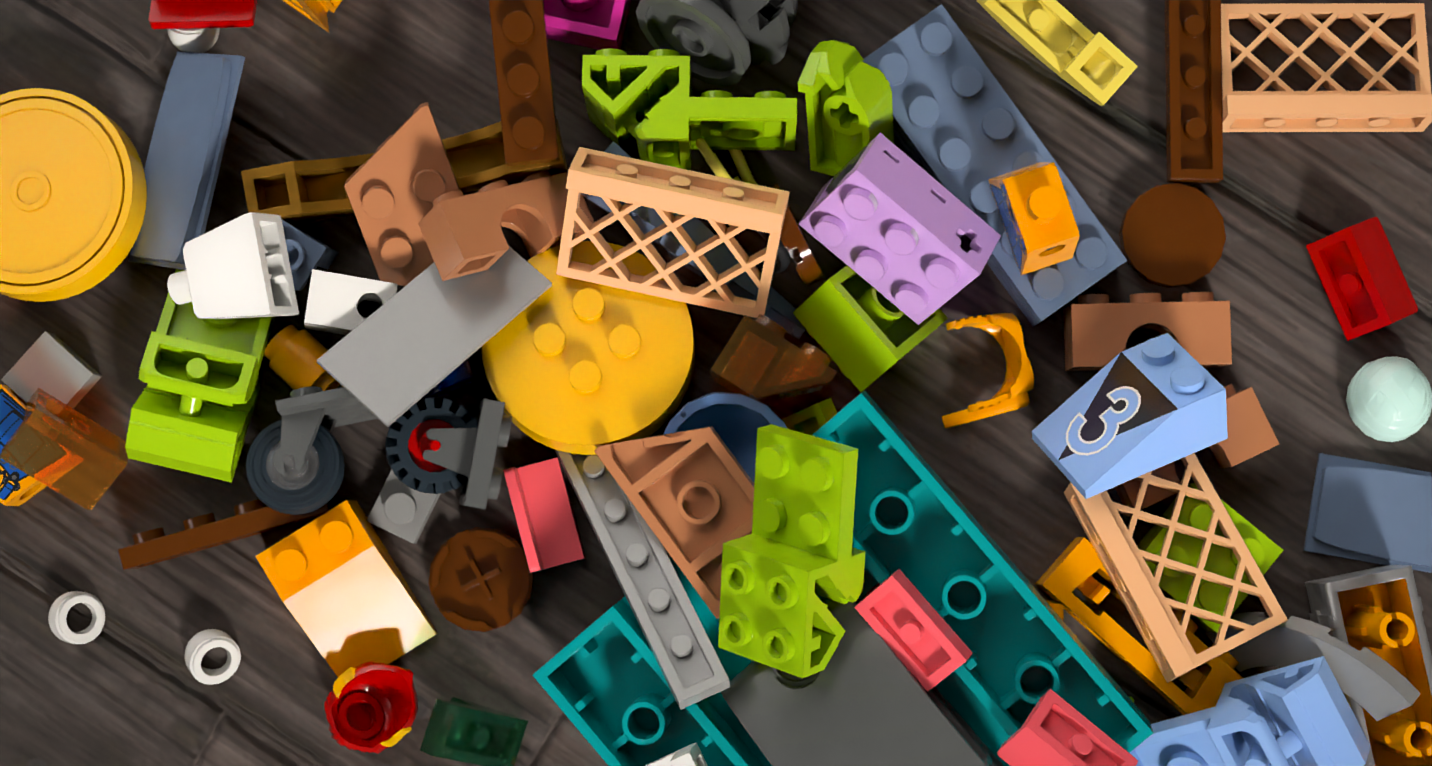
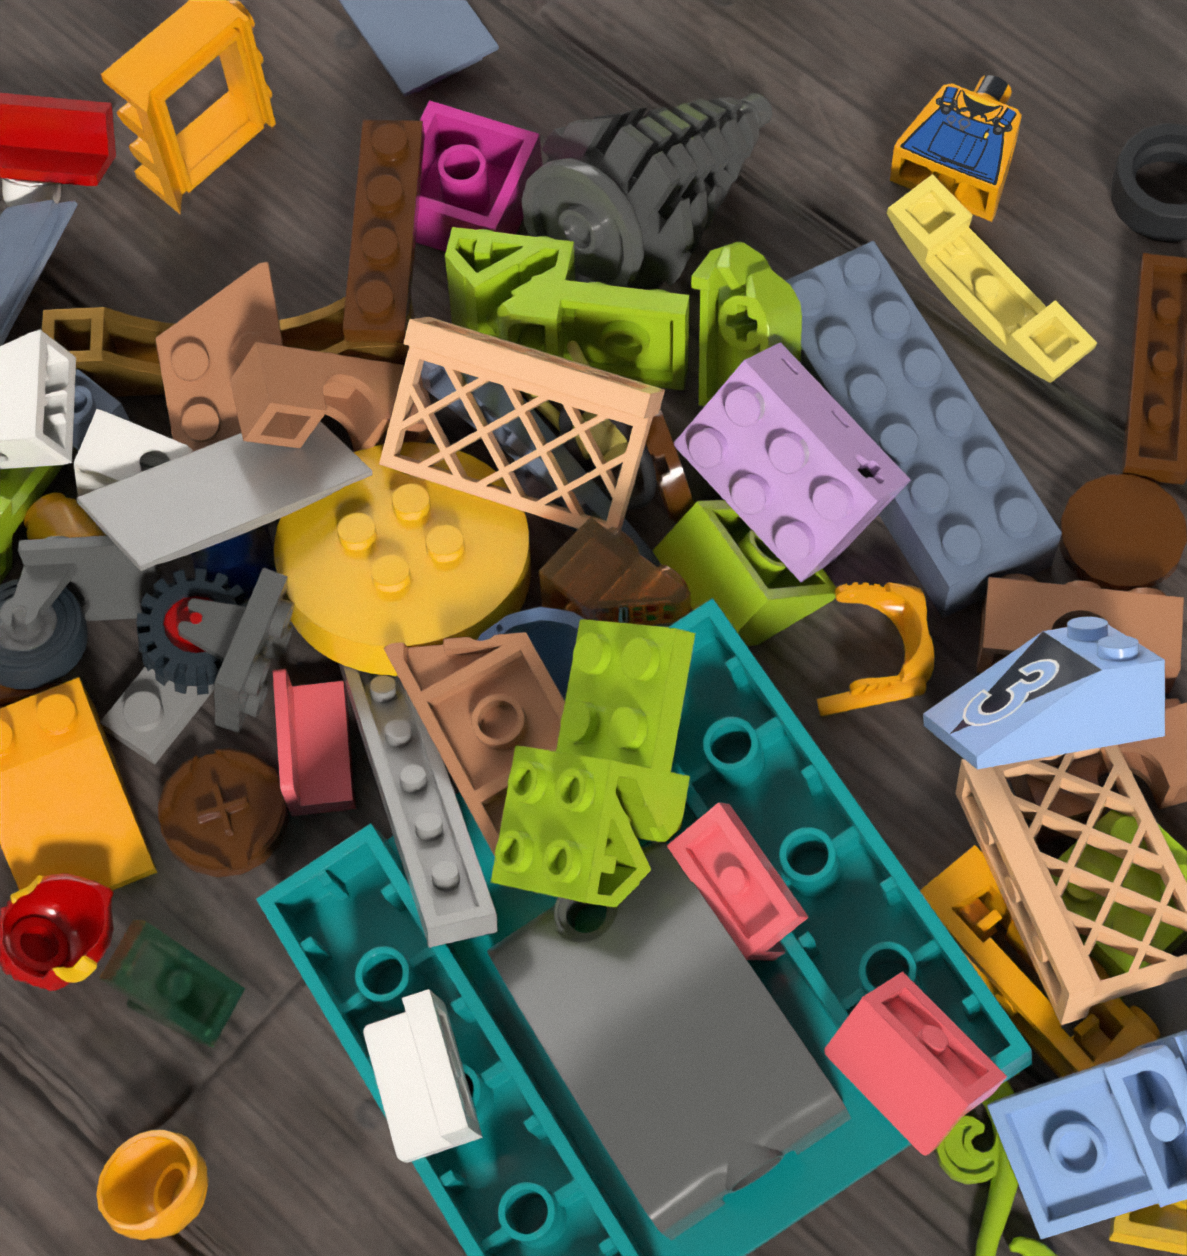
camera: 10 degrees right, 20 degrees down
(1036, 216) = (951, 434): light orange torso -> none

